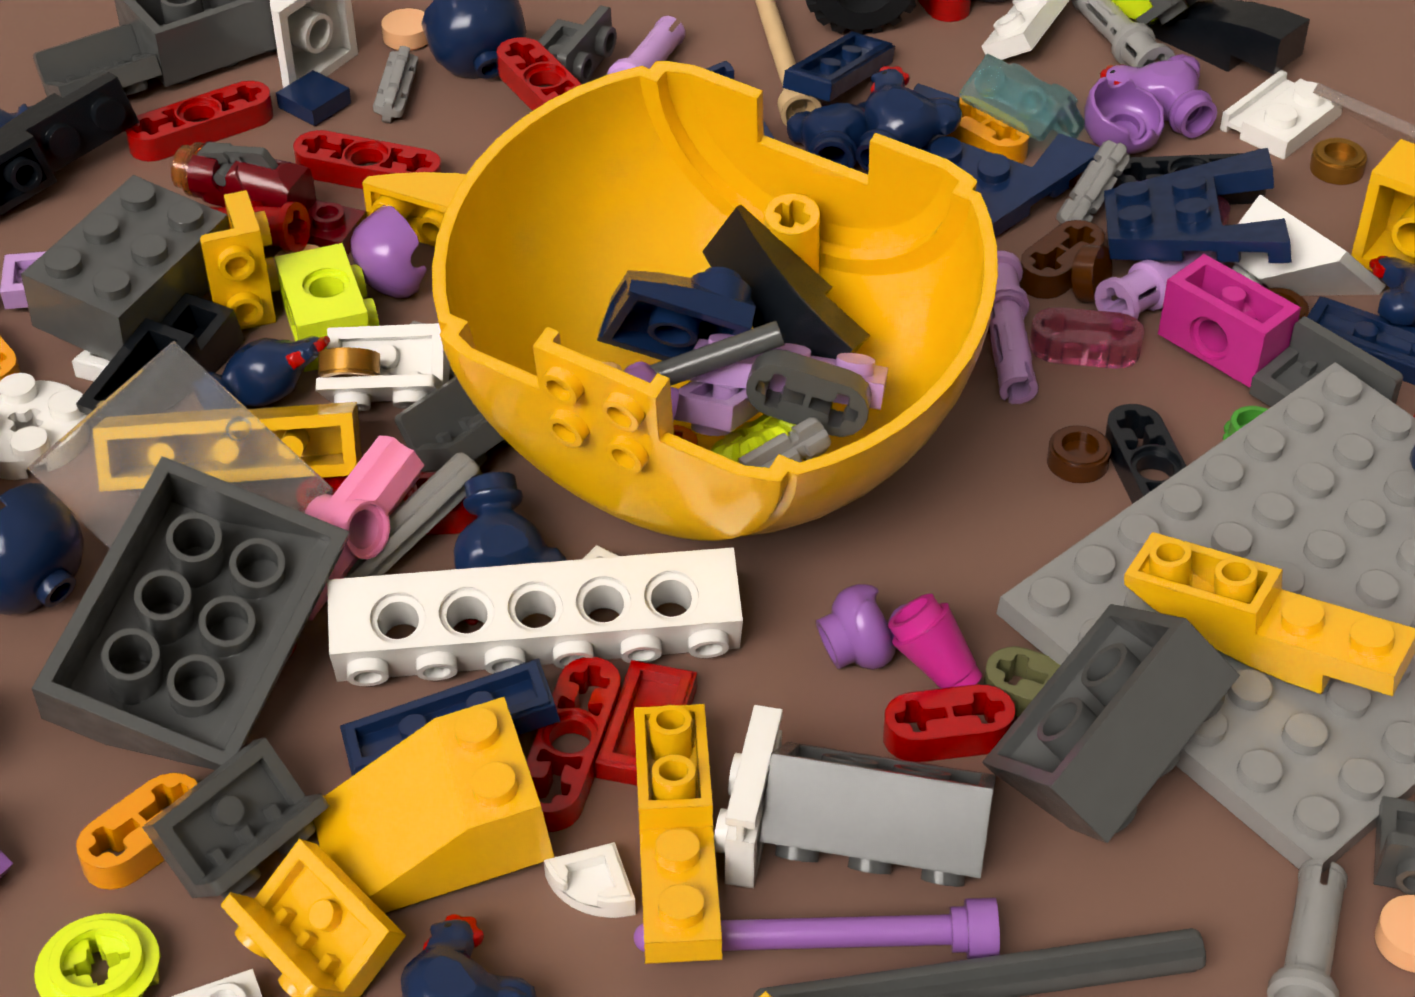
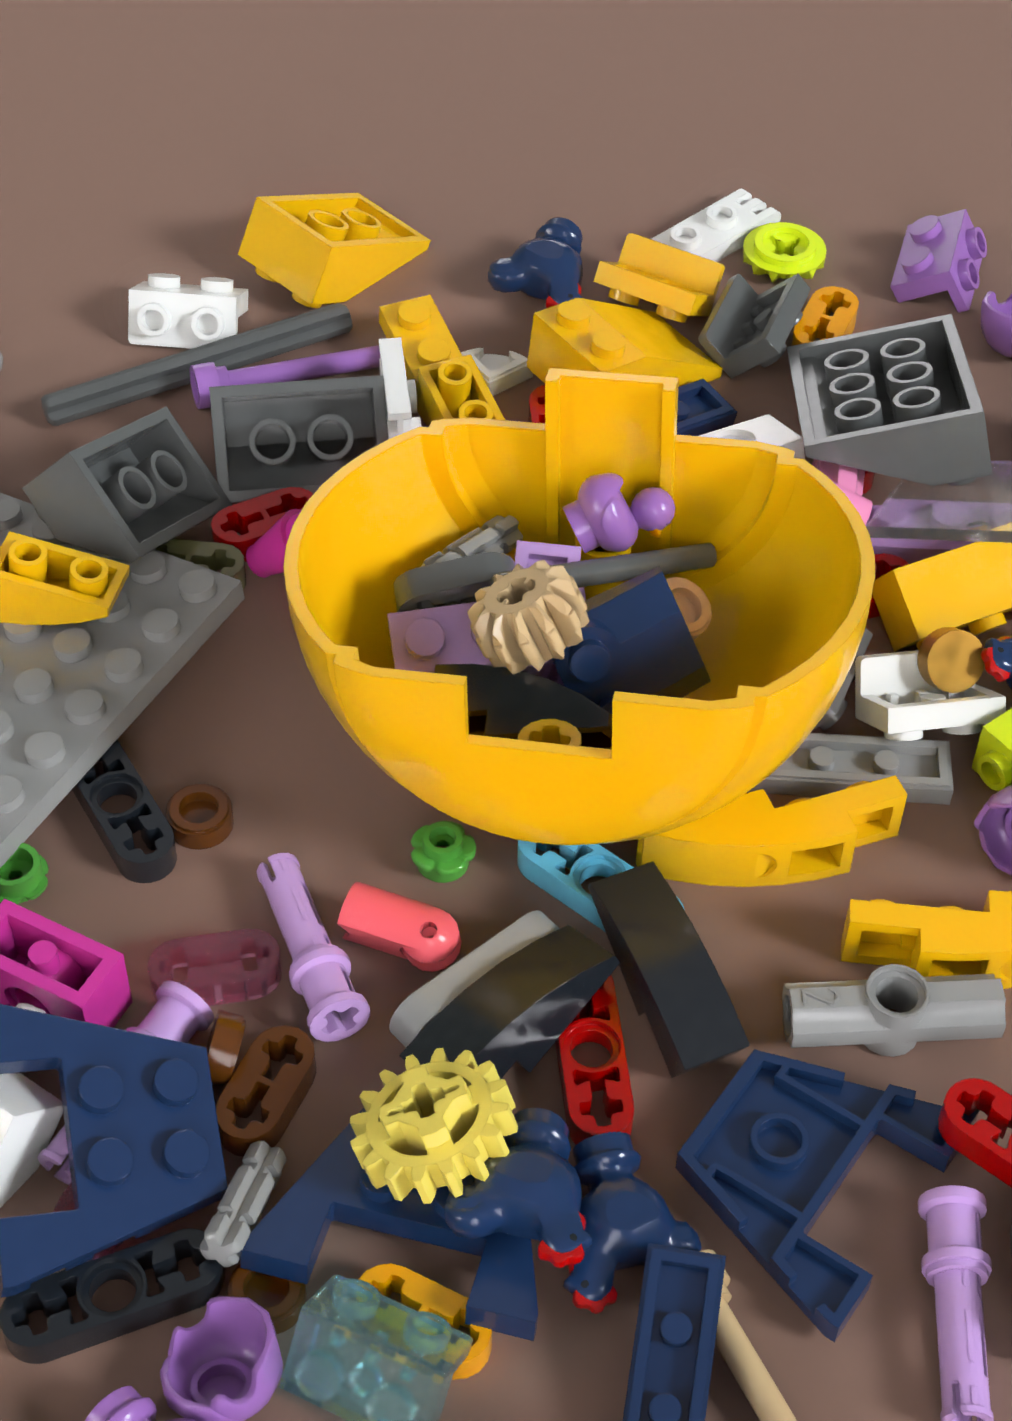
camera: 160 degrees right, 5 degrees up
(770, 277) = (528, 616): none -> tan gear
(961, 135) = (433, 1125): none -> light yellow gear

